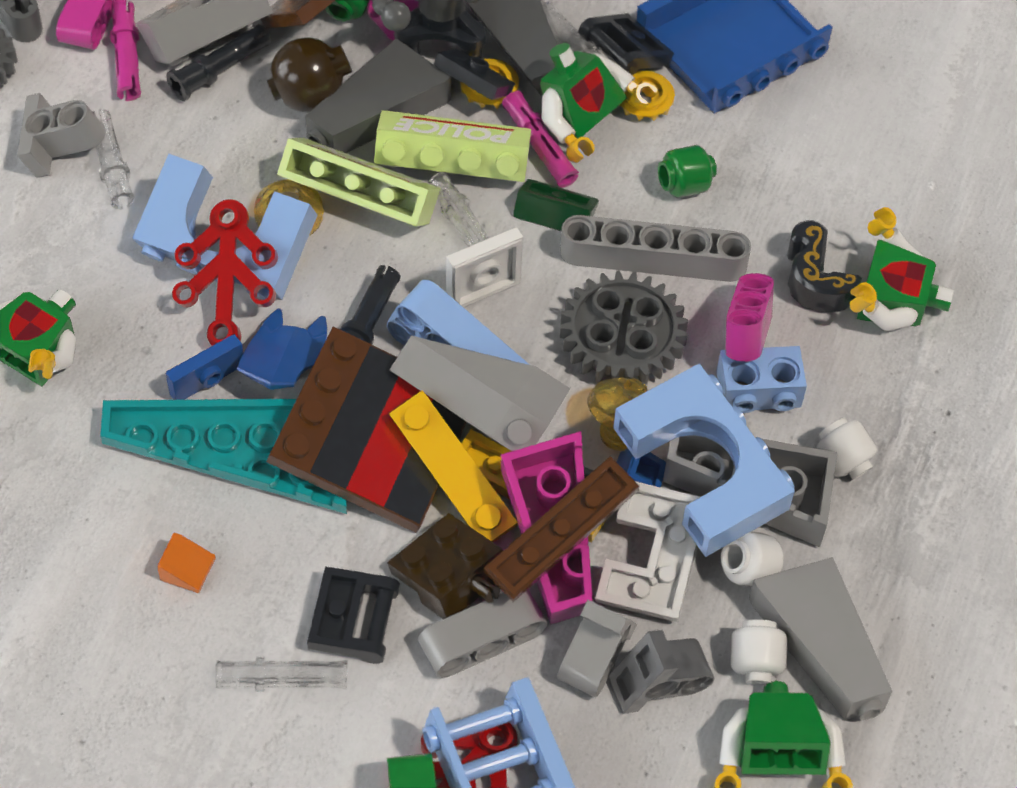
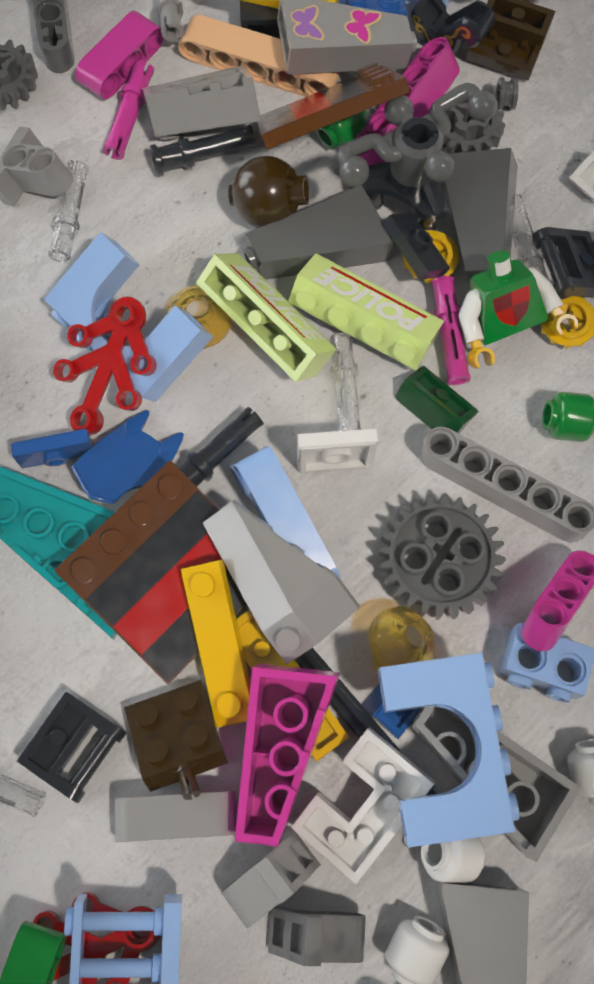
camera: 25 degrees right, 15 degrees up
(561, 529) = (276, 767): reddish brown tile -> none

